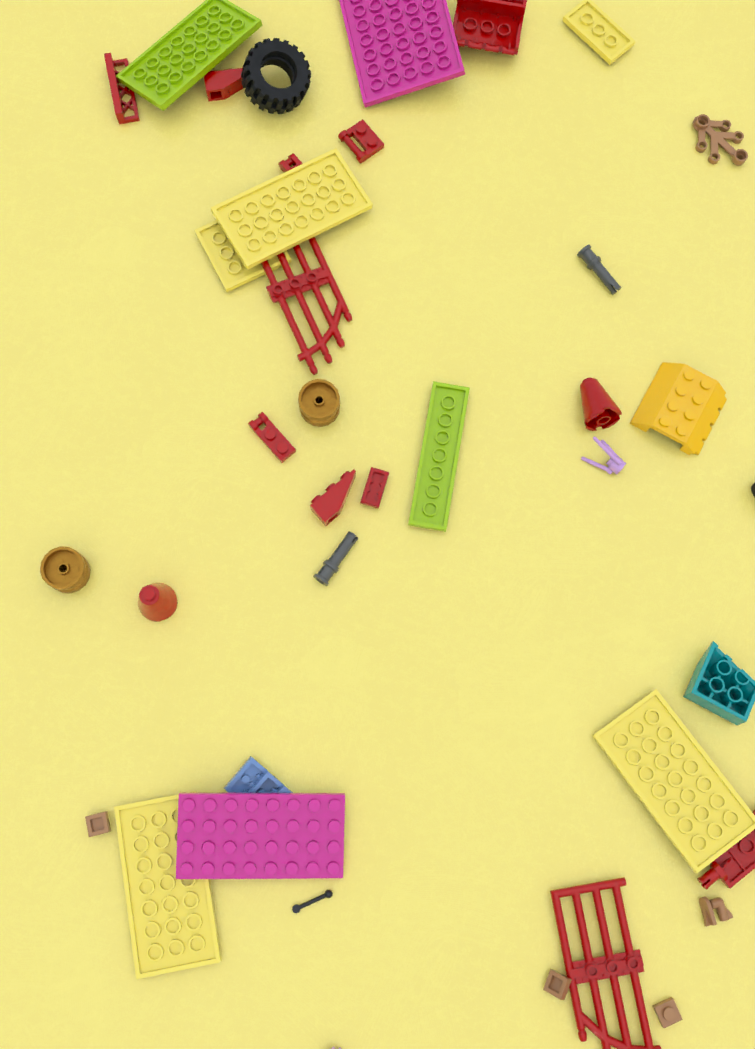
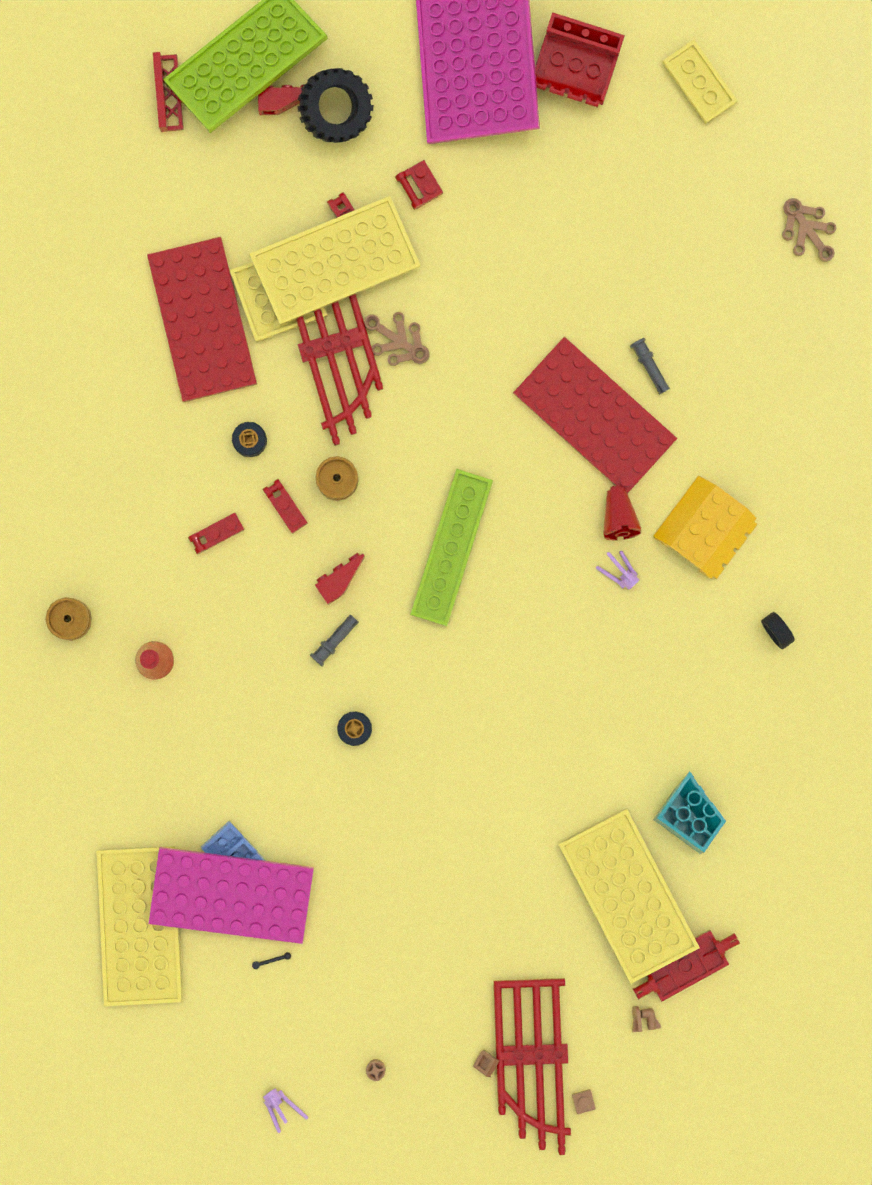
camera: 10 degrees right, 10 degrees up
(98, 824) = (80, 864): medium nougat plate -> none
(173, 279) = (202, 319): none -> red plate
(207, 470) = (216, 533): none -> red plate
(229, 385) = (249, 439): none -> black wheel
(360, 275) = (399, 341): none -> medium nougat plant
(362, 641) = (354, 728): none -> black wheel
(374, 487) = (382, 572): red plate -> none
(442, 1013) = (378, 1070): none -> medium nougat wheel
(555, 320) = (595, 415): none -> red plate

